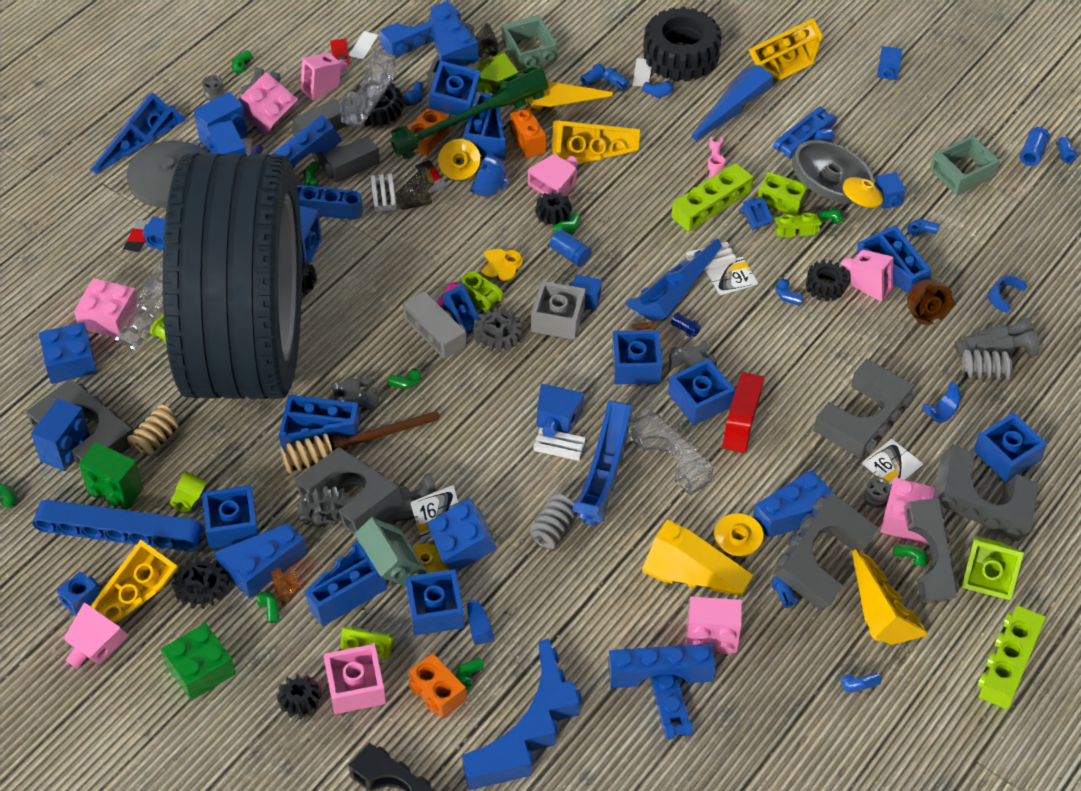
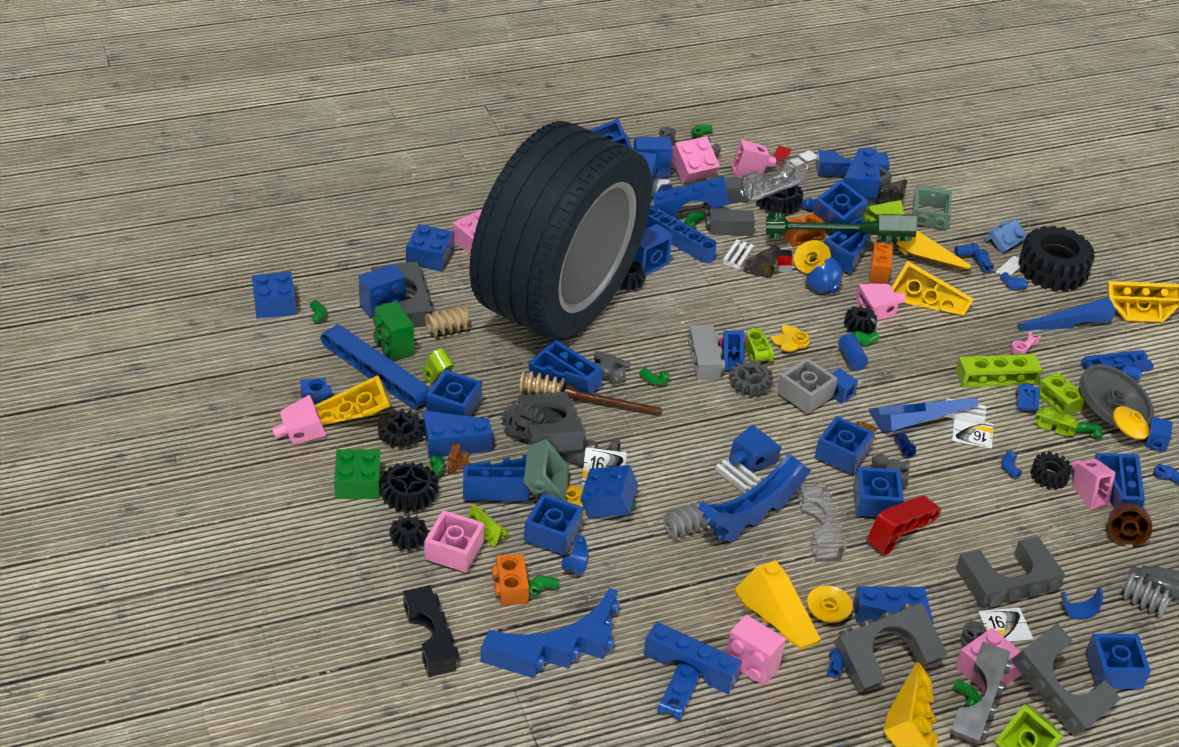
camera: 30 degrees right, 10 degrees down
(269, 633) = (409, 486): none -> black gear
(618, 39) = (1007, 236): none -> medium blue bracket

